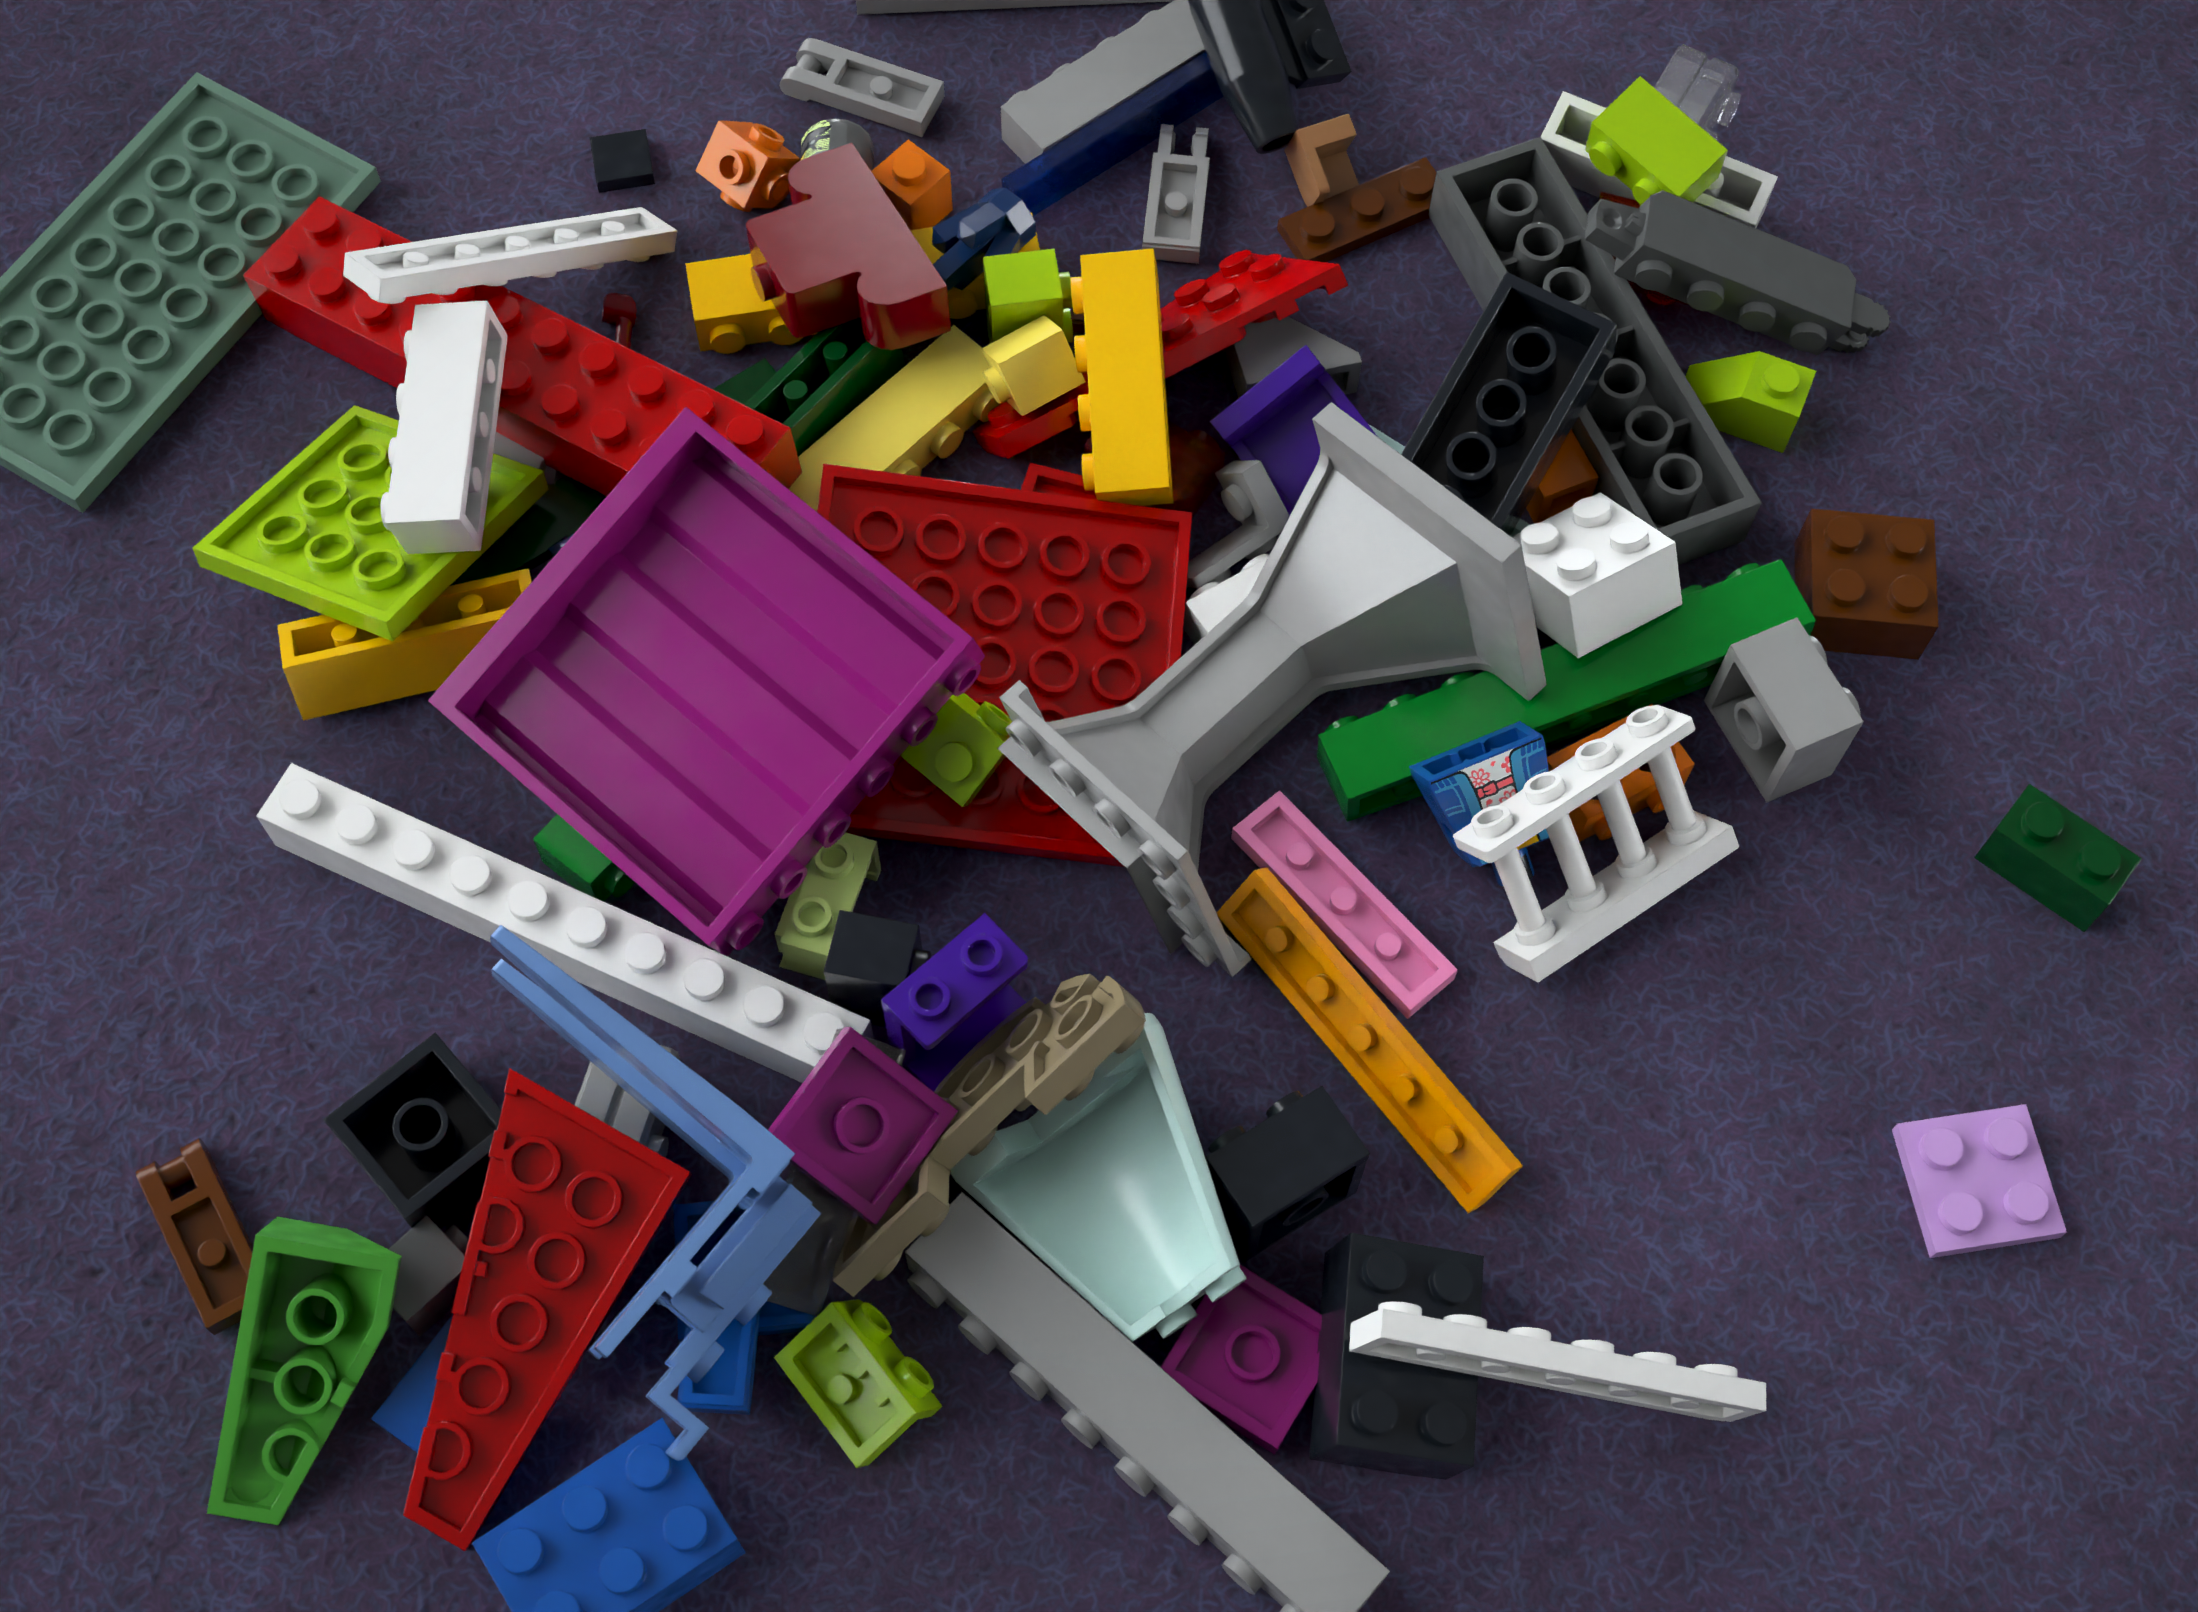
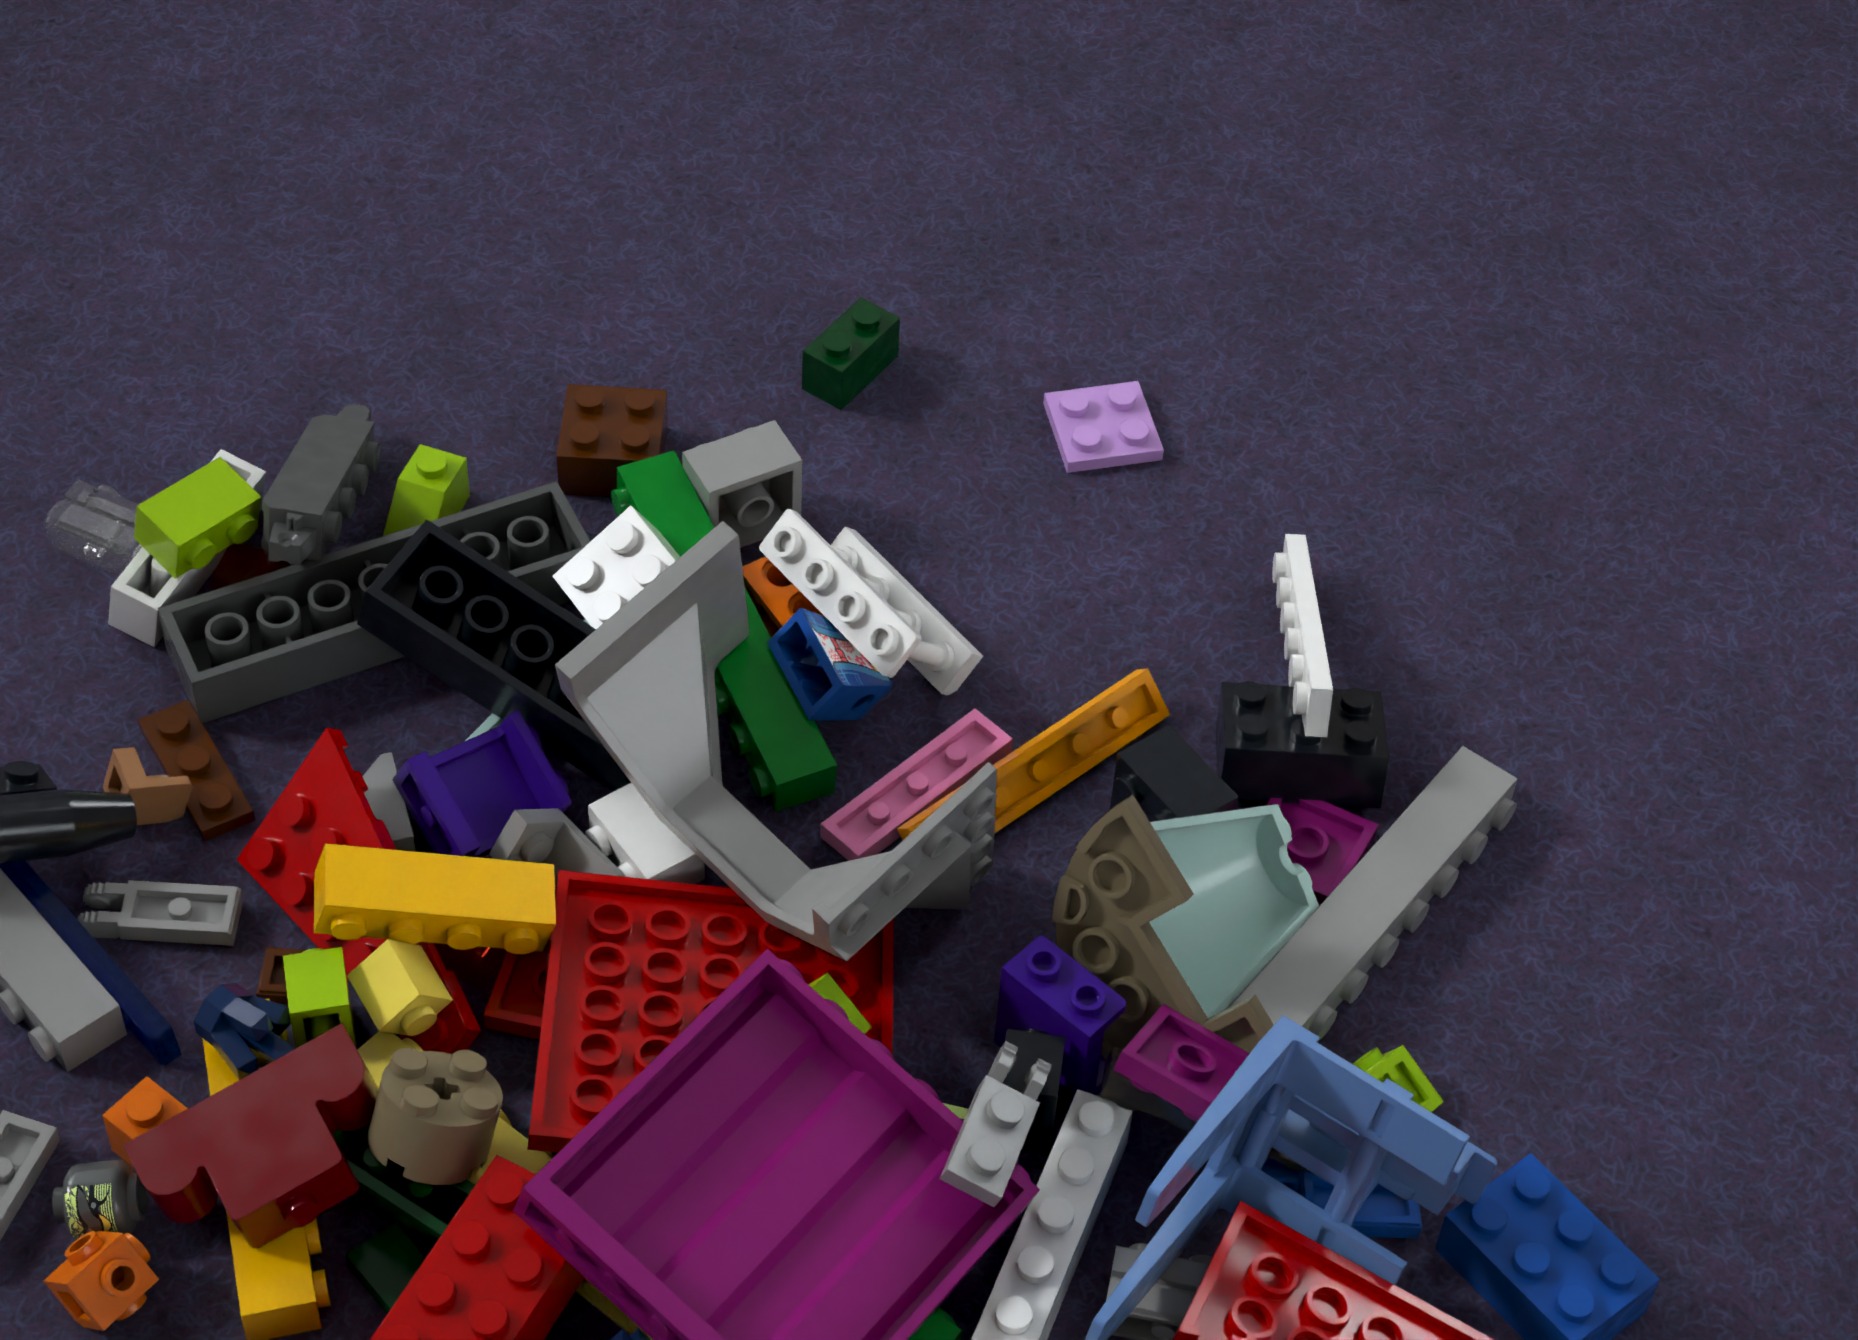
camera: 95 degrees left, 15 degrees down
(765, 888) = (994, 1129): none -> light grey hinge
(877, 388) = (435, 1114): none -> dark tan brick

